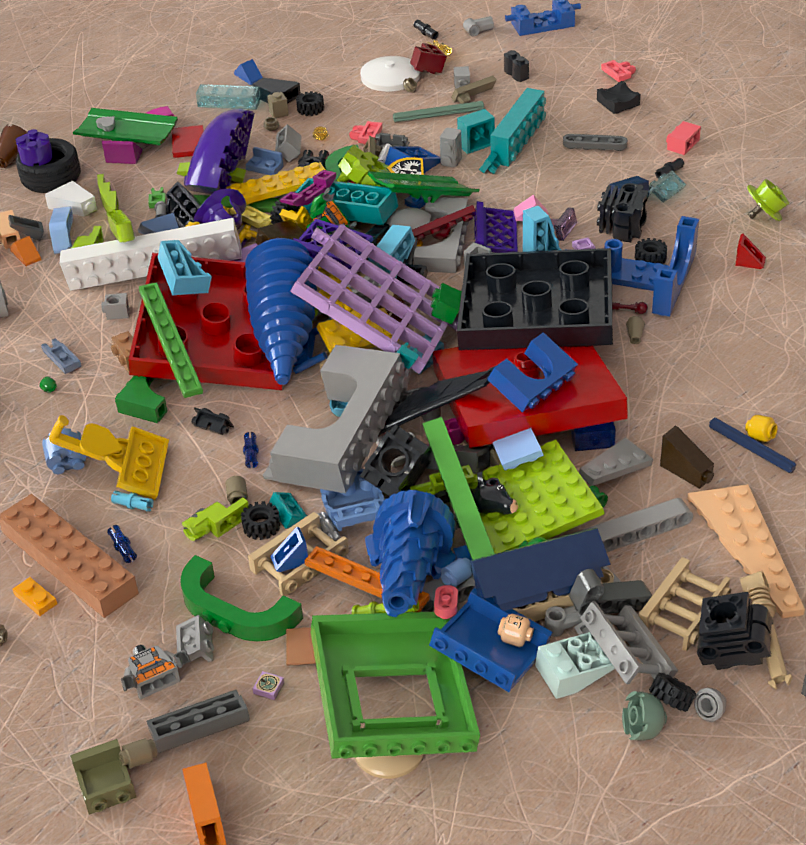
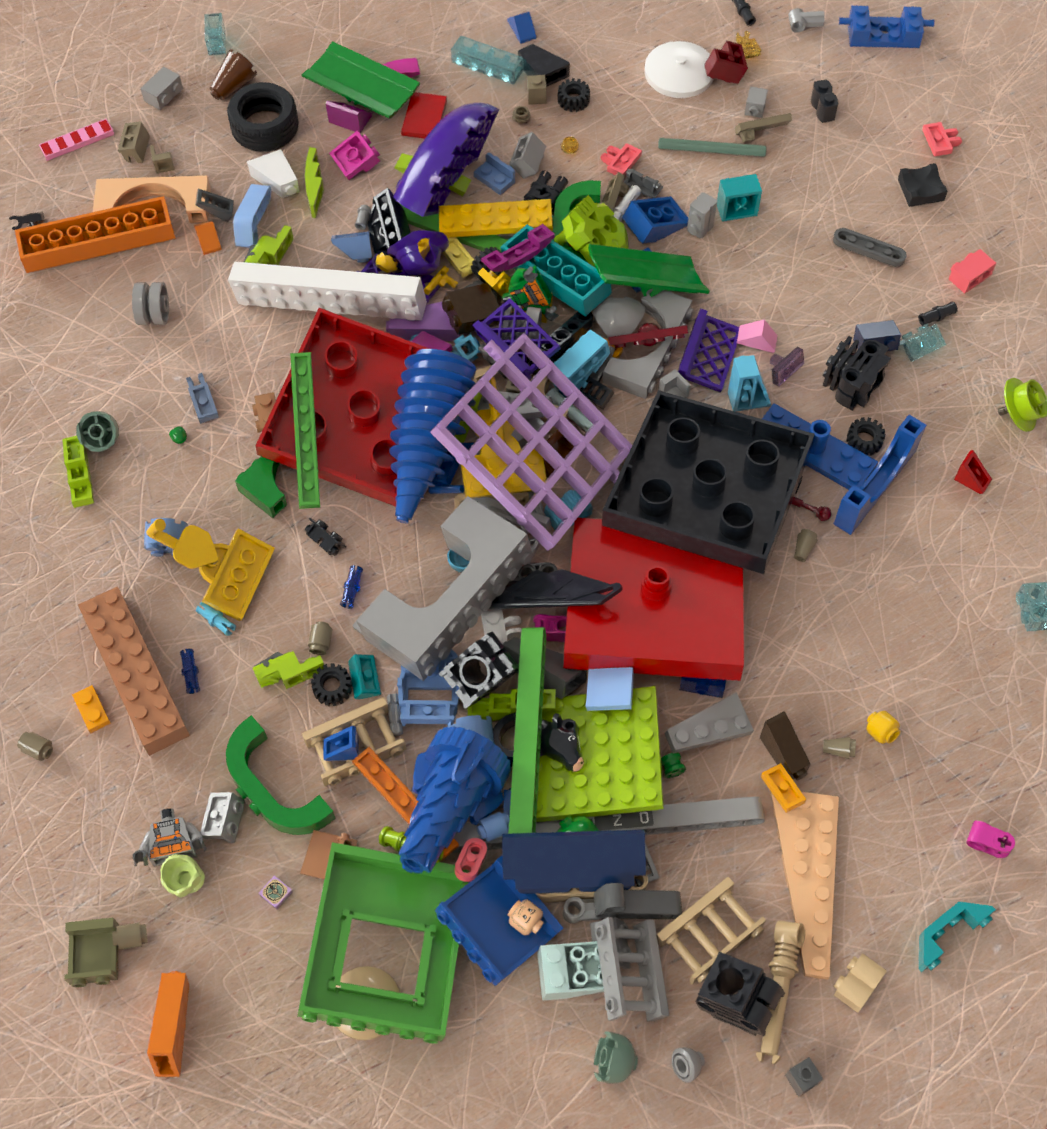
camera: 15 degrees right, 20 degrees up
(34, 148) = (247, 100): dark purple brick -> none
(106, 123) = (340, 71): light grey tile -> none
(116, 306) = (276, 345): light grey brick -> none
(120, 226) = (305, 243): lime beam -> none
(139, 173) = (355, 155): none -> dark pink plate
(155, 197) = (364, 196): bright green plate -> none
(172, 690) = (181, 875): none -> yellowish green hair
(181, 271) = (339, 347): medium azure wedge -> none
(198, 721) = (194, 916): dark grey brick -> none
(407, 165) = (640, 237): shield -> none
(408, 356) = (536, 537): teal tile -> none
(410, 85) = (694, 96): dark tan plate -> none
(445, 303) = (609, 459): green brick -> none
(490, 164) = (739, 246): teal tile -> none
(518, 126) = (788, 203): teal brick -> none
(527, 391) = (684, 603): blue arch -> none
(584, 243) = (797, 402): lavender tile -> none
(672, 692) = (652, 1040): black tyre -> none
(698, 486) = (783, 788): none -> light orange plate
(732, 451) = (840, 747): none -> dark tan cone
(752, 445) = (865, 744): dark blue axle -> none

